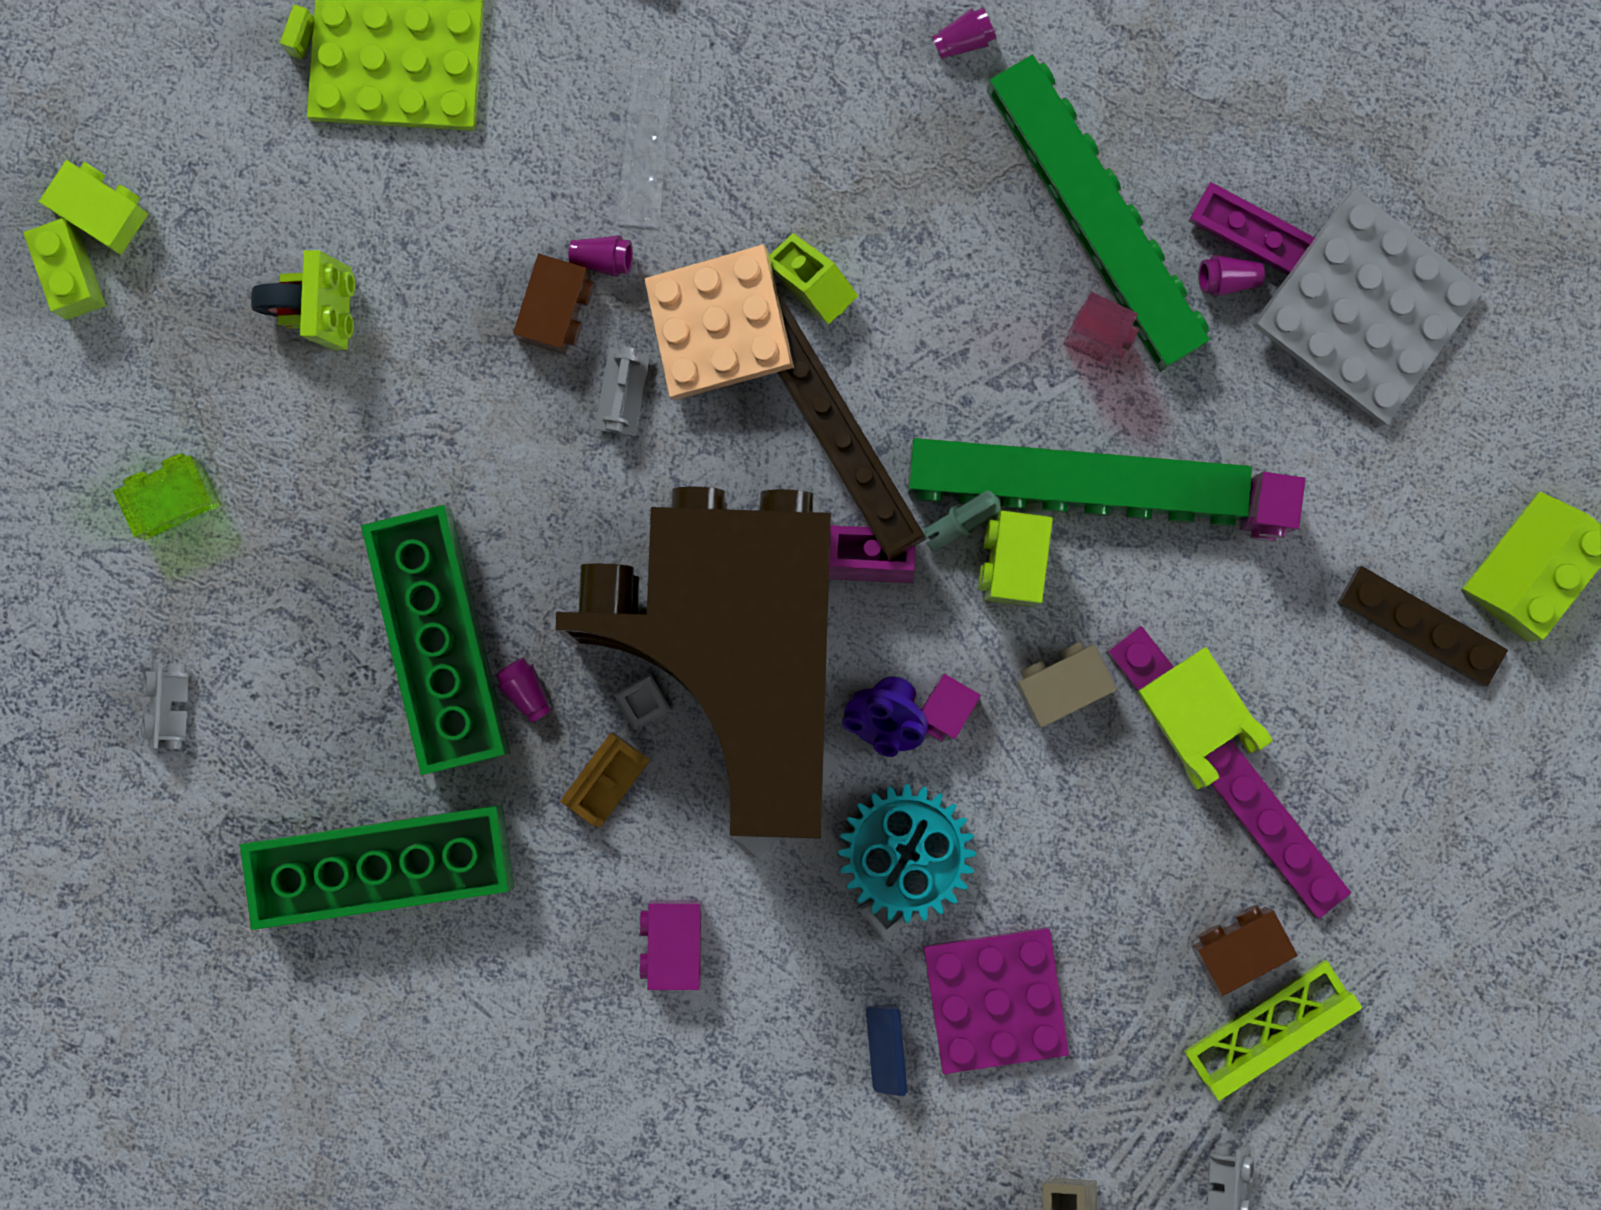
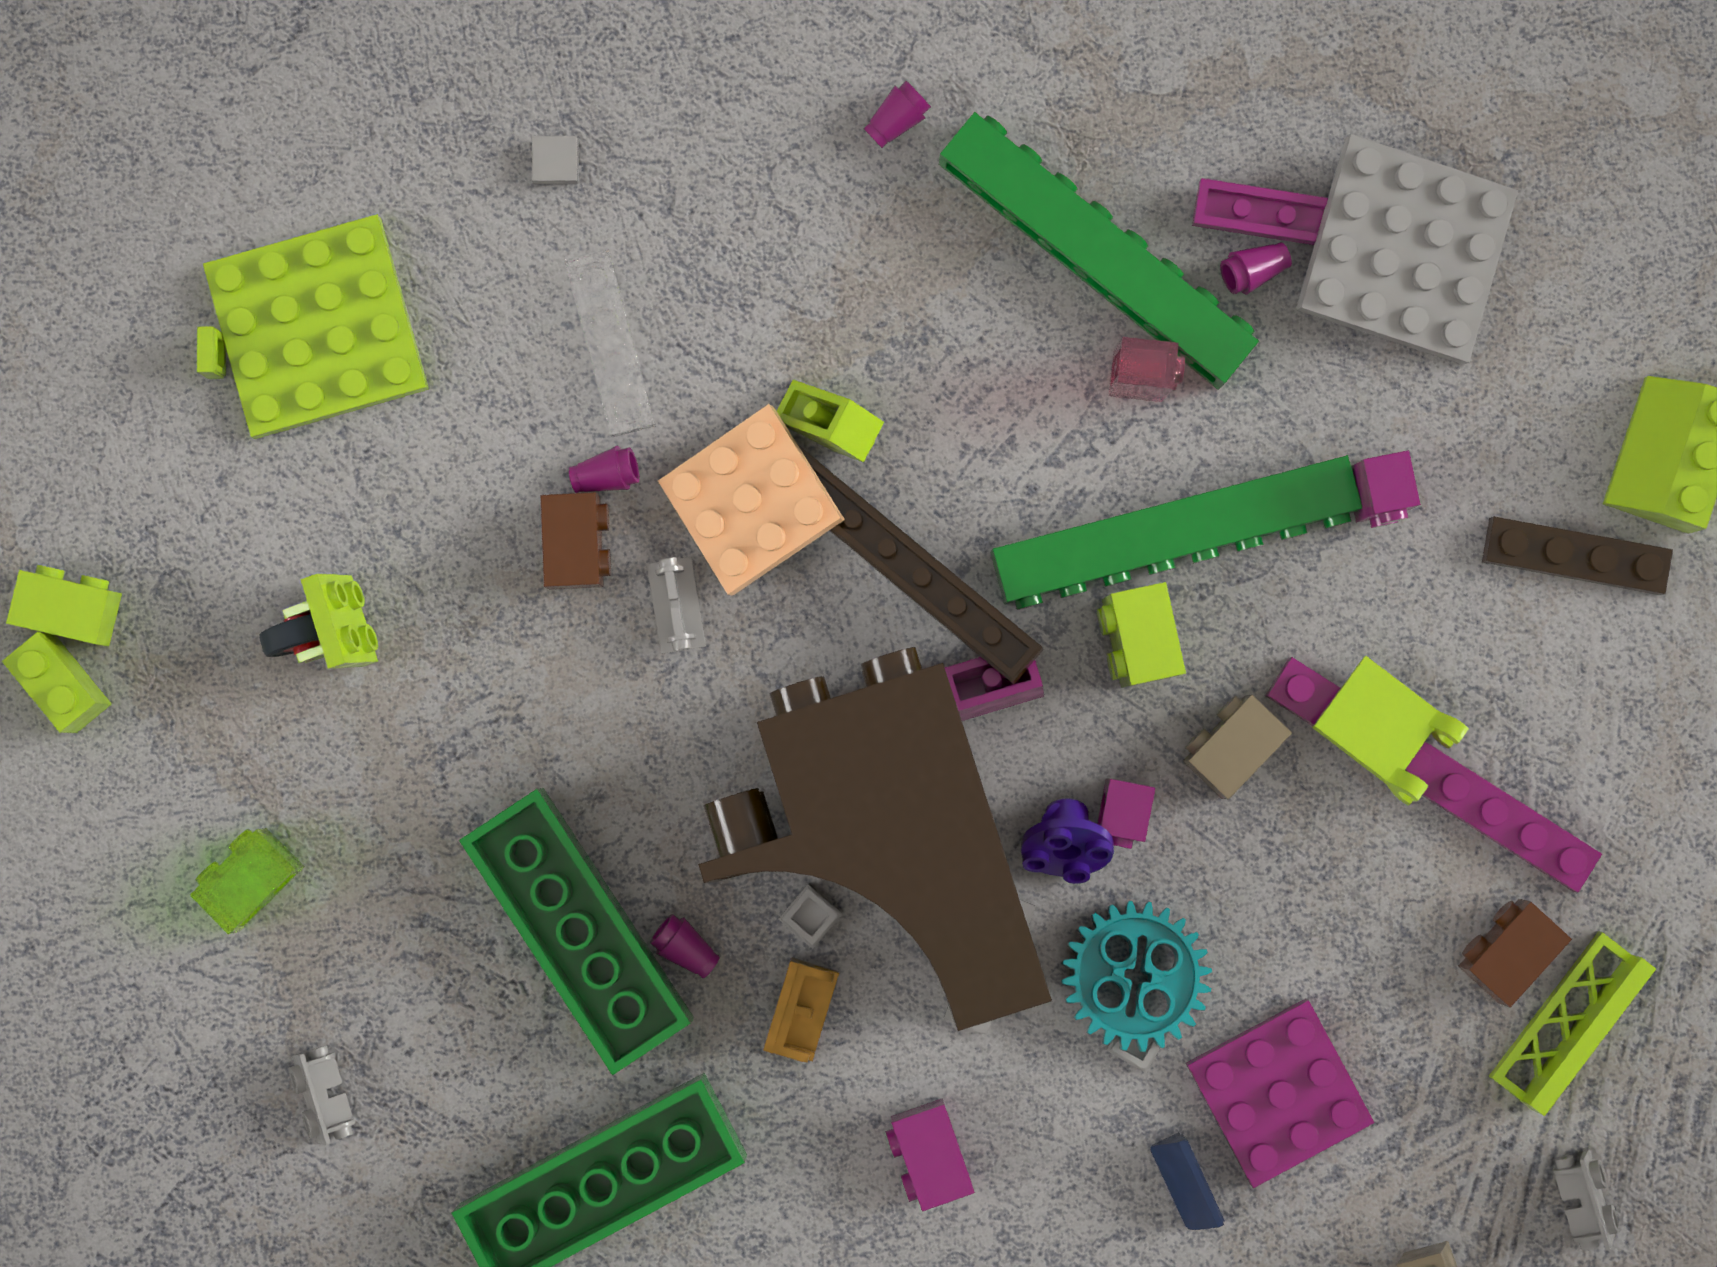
camera: 20 degrees left, 0 degrees up
(962, 520) = (1072, 614): sand green axle -> none

